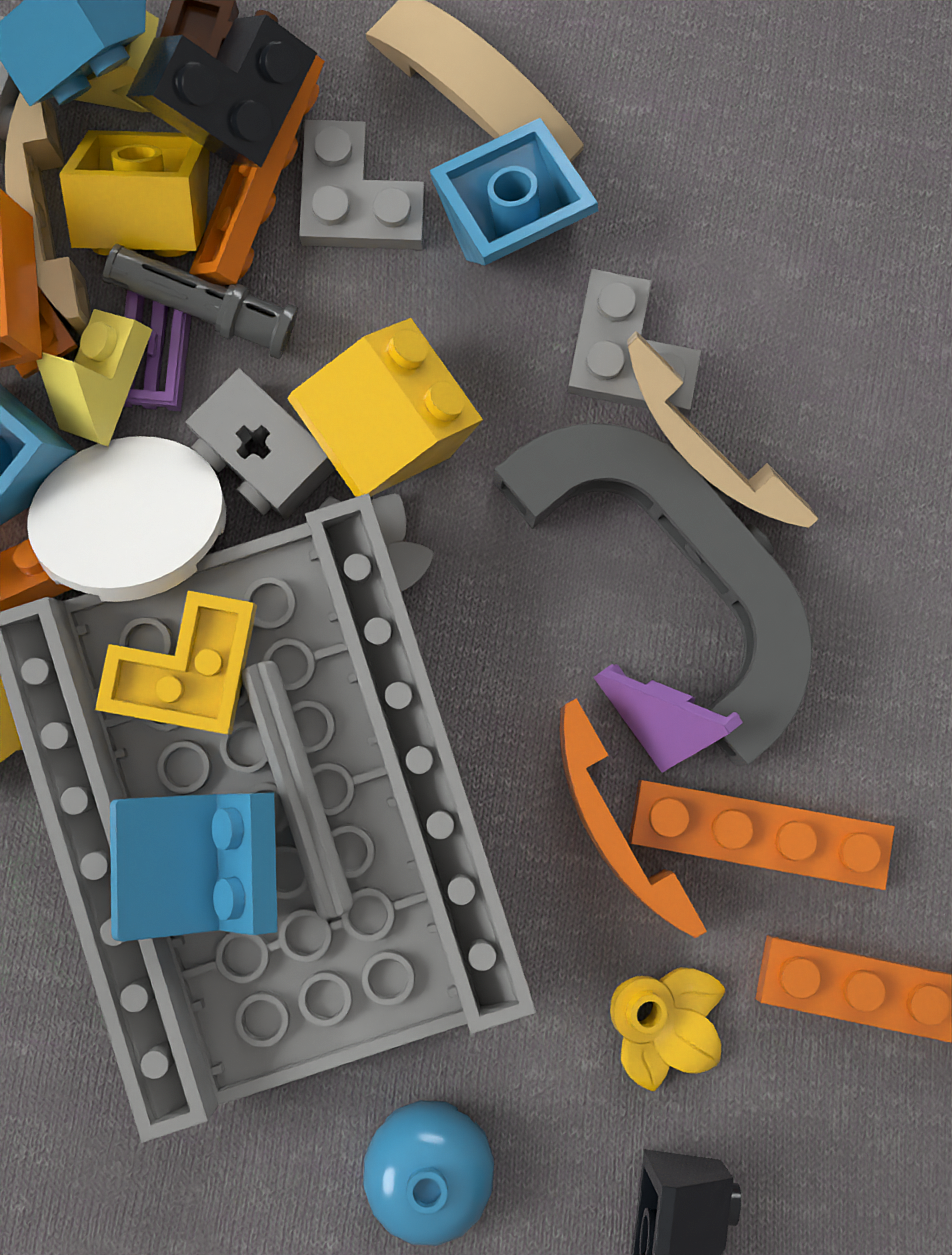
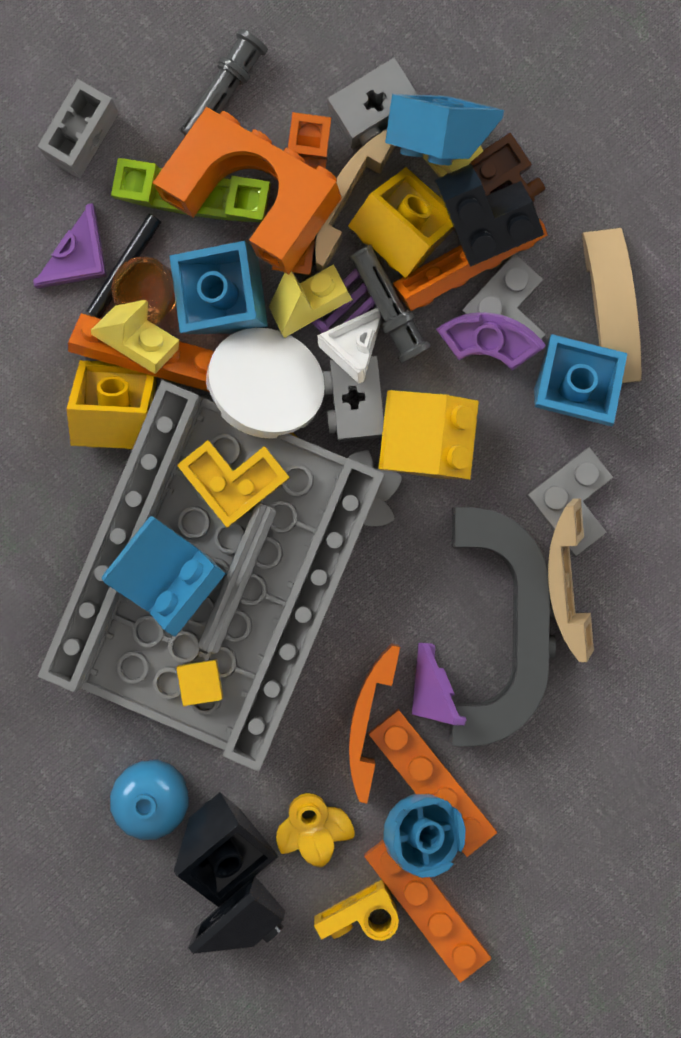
camera: 45 degrees right, 5 degrees up
(195, 379) = (352, 343): none -> white tile
(358, 233) = (491, 336): none -> medium lavender tile
(363, 963) = (200, 682): none -> yellow tile
(575, 1158) = (221, 850): none -> black slope
(809, 1074) = (339, 918): none -> yellow plate
(812, 908) = (424, 834): none -> dark azure cylinder

